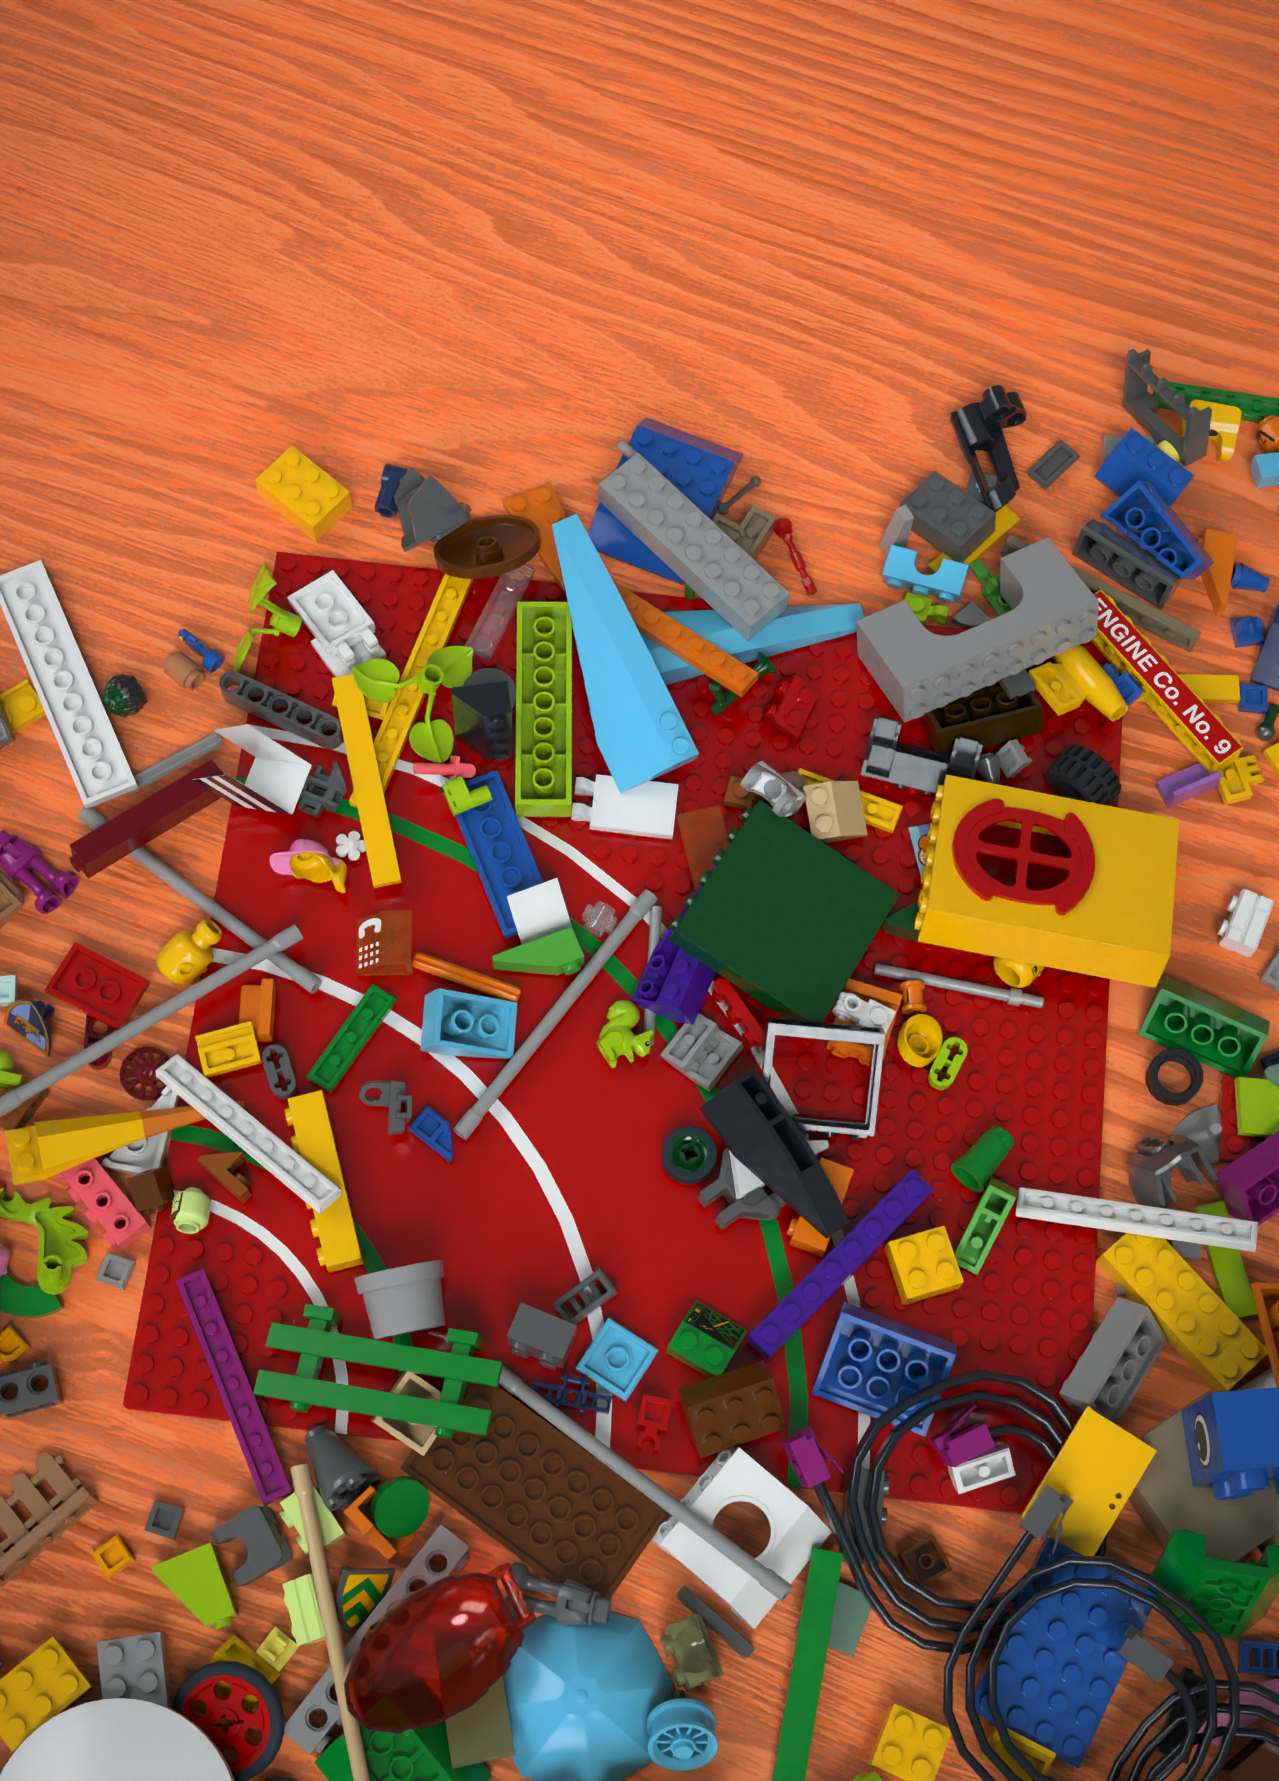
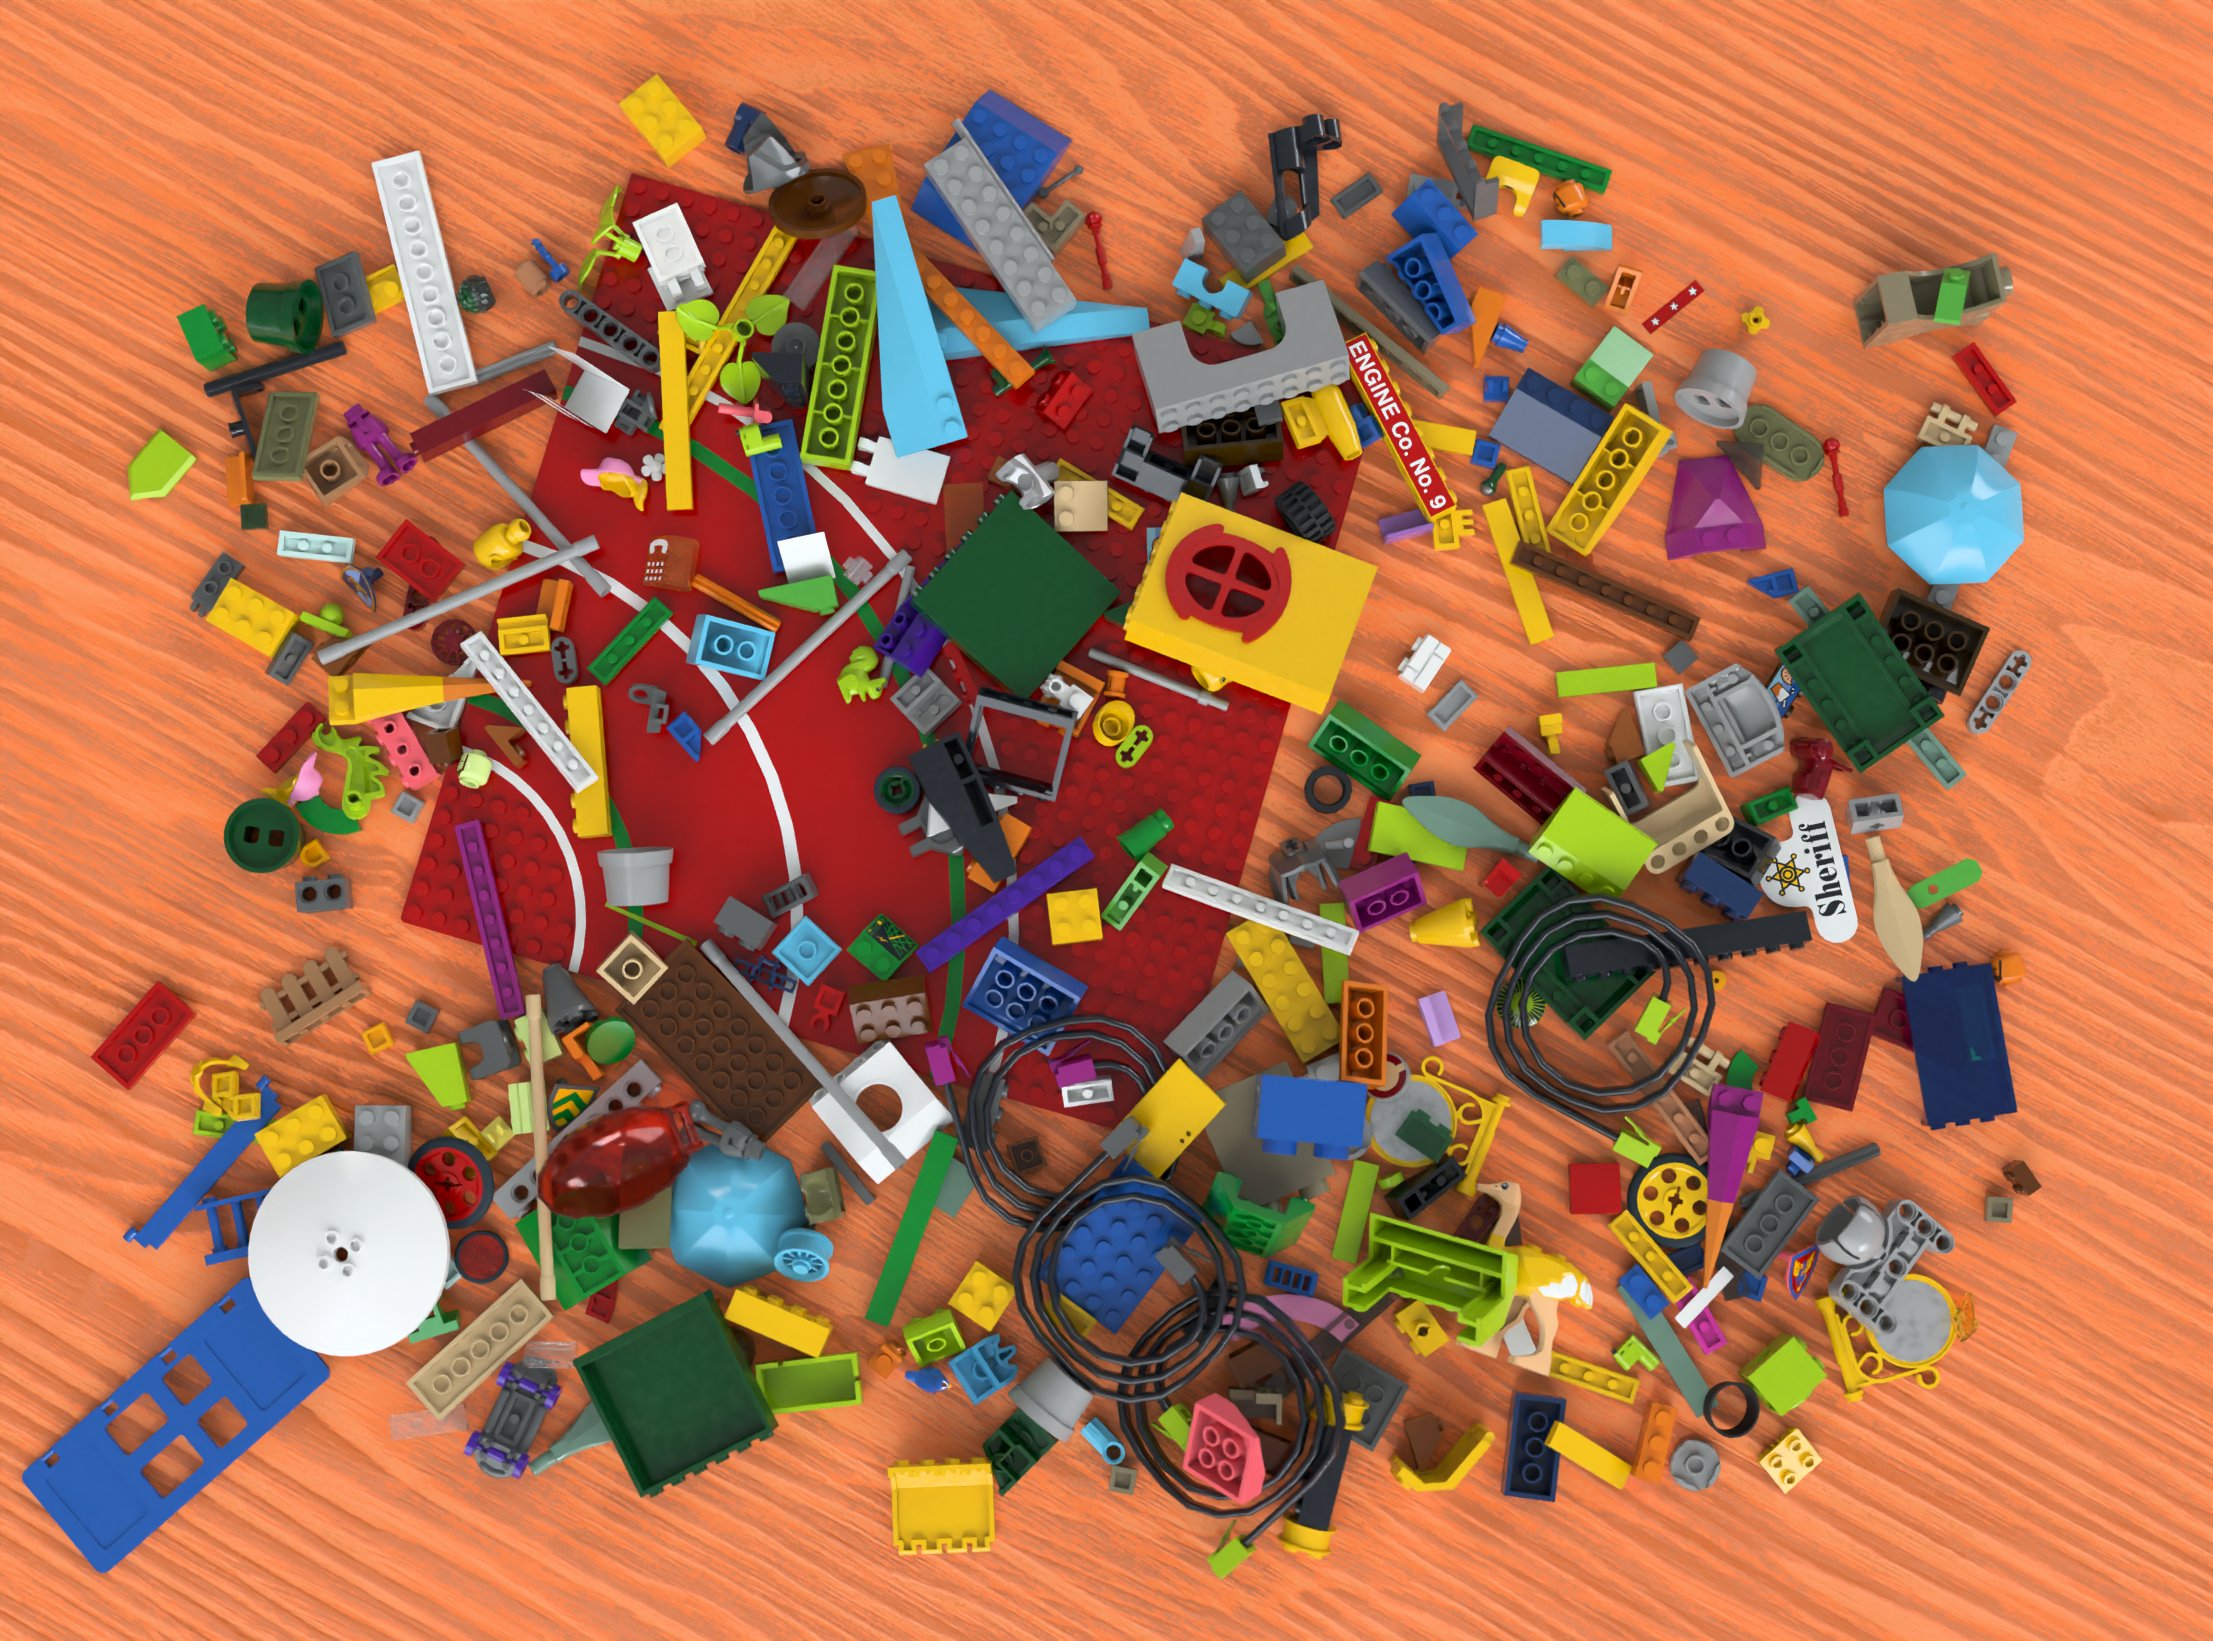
camera: 15 degrees right, 15 degrees up
(318, 1342) = (562, 899): green fence -> none
(1167, 448) = (1461, 204): light yellow tile -> none

